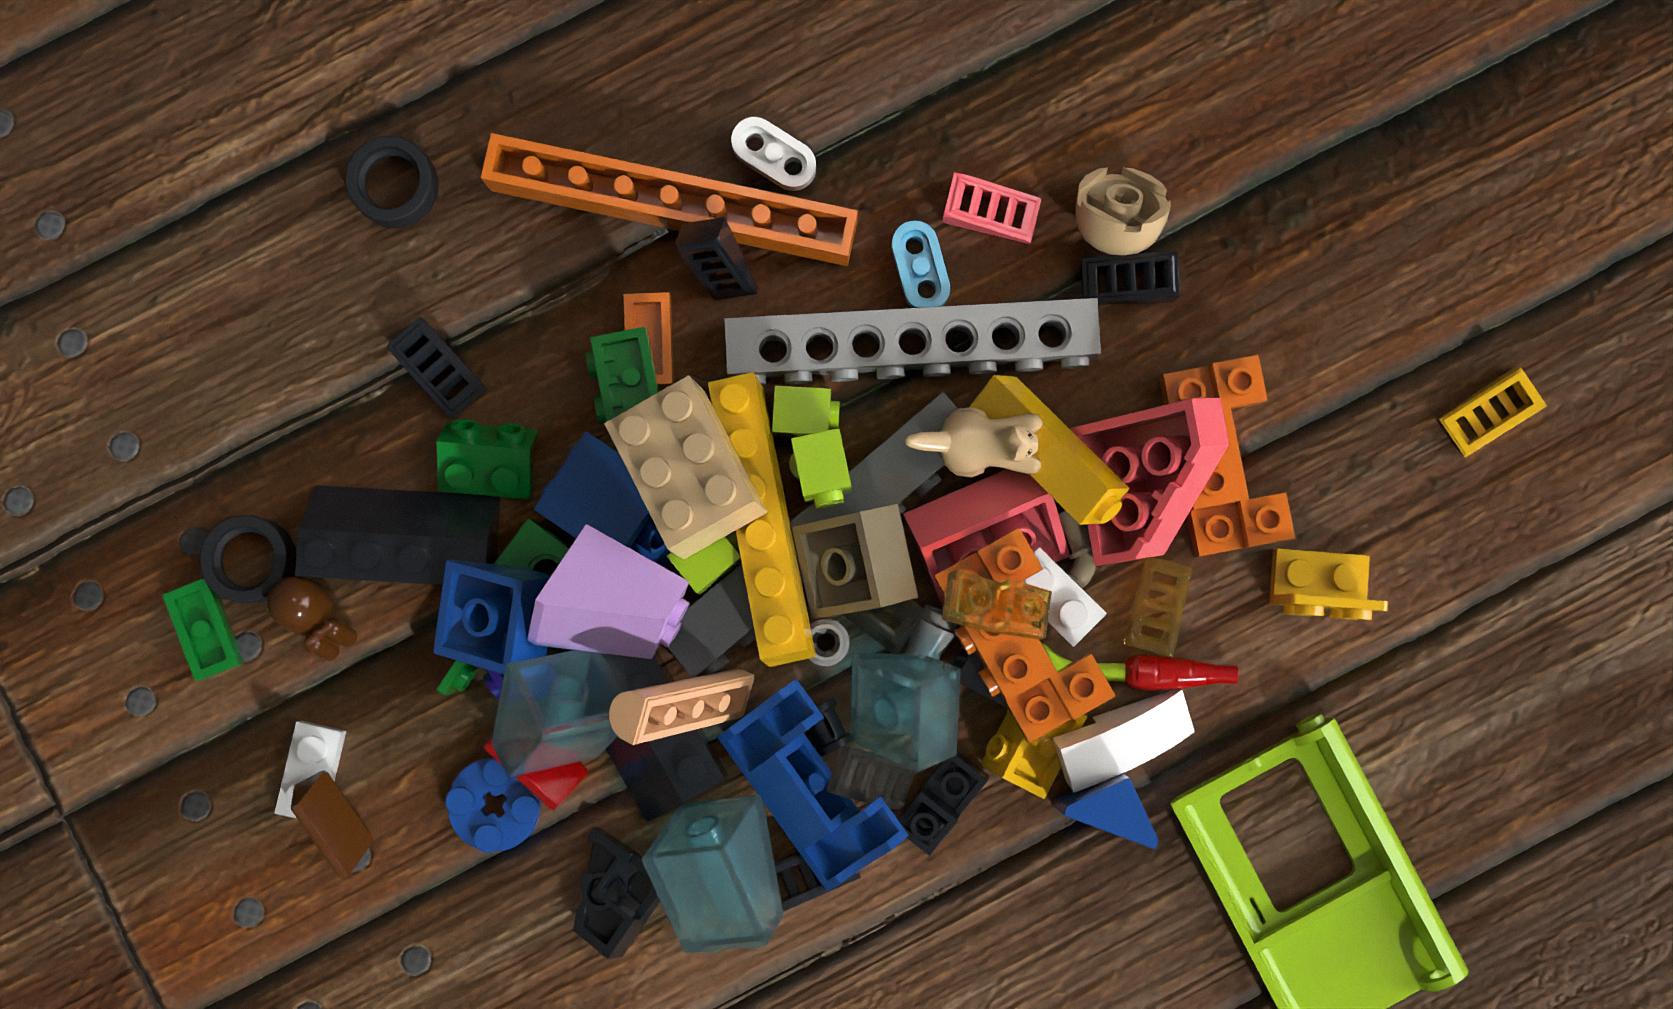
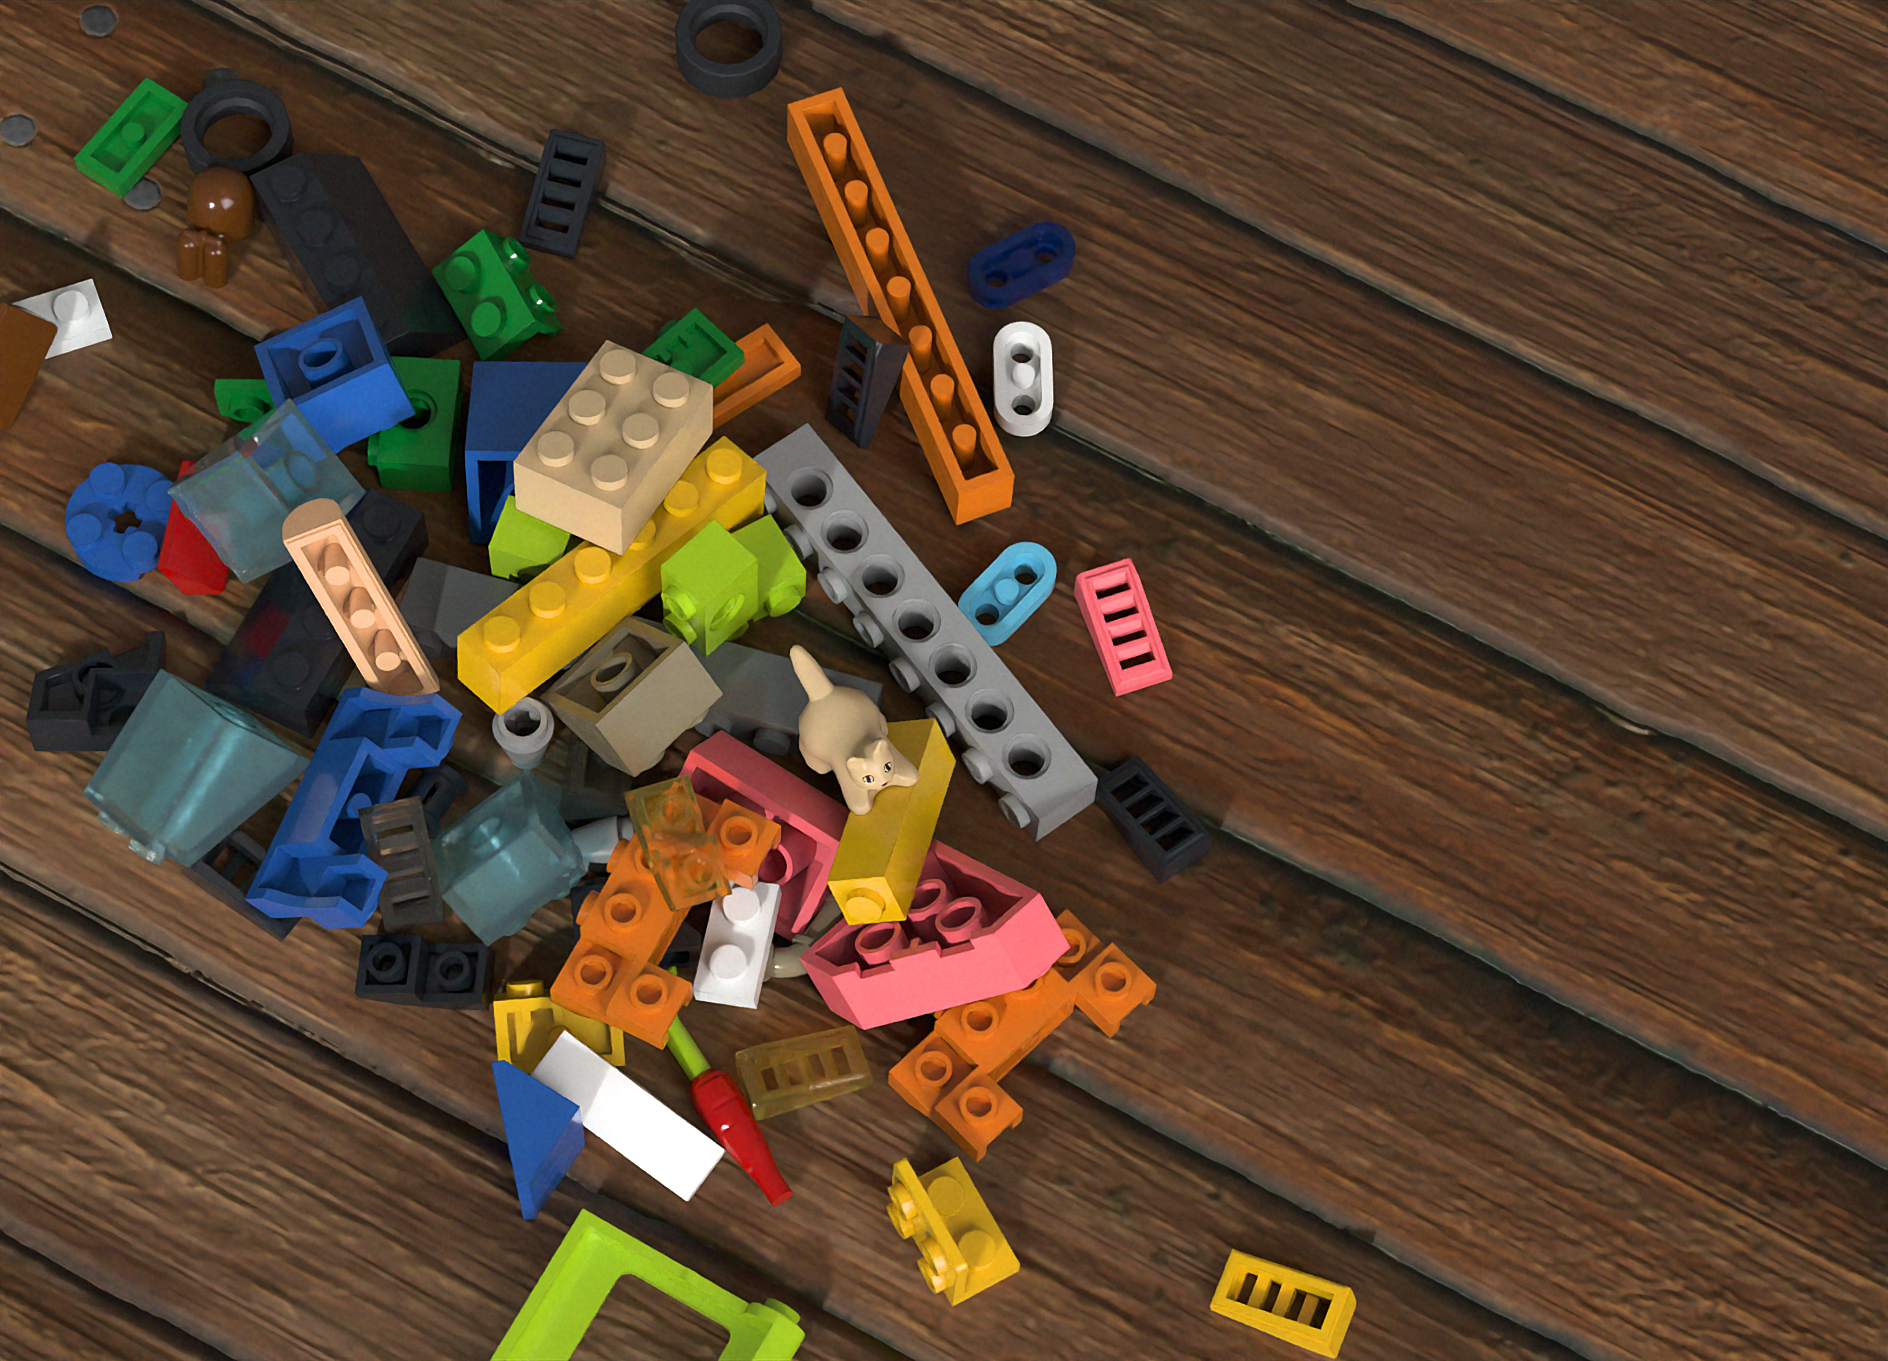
camera: 50 degrees right, 20 degrees down
(608, 601) = (418, 458): lavender slope -> none
(689, 101) = (1016, 264): none -> clear blue plate
(1121, 211) = (1210, 748): tan cylinder -> none

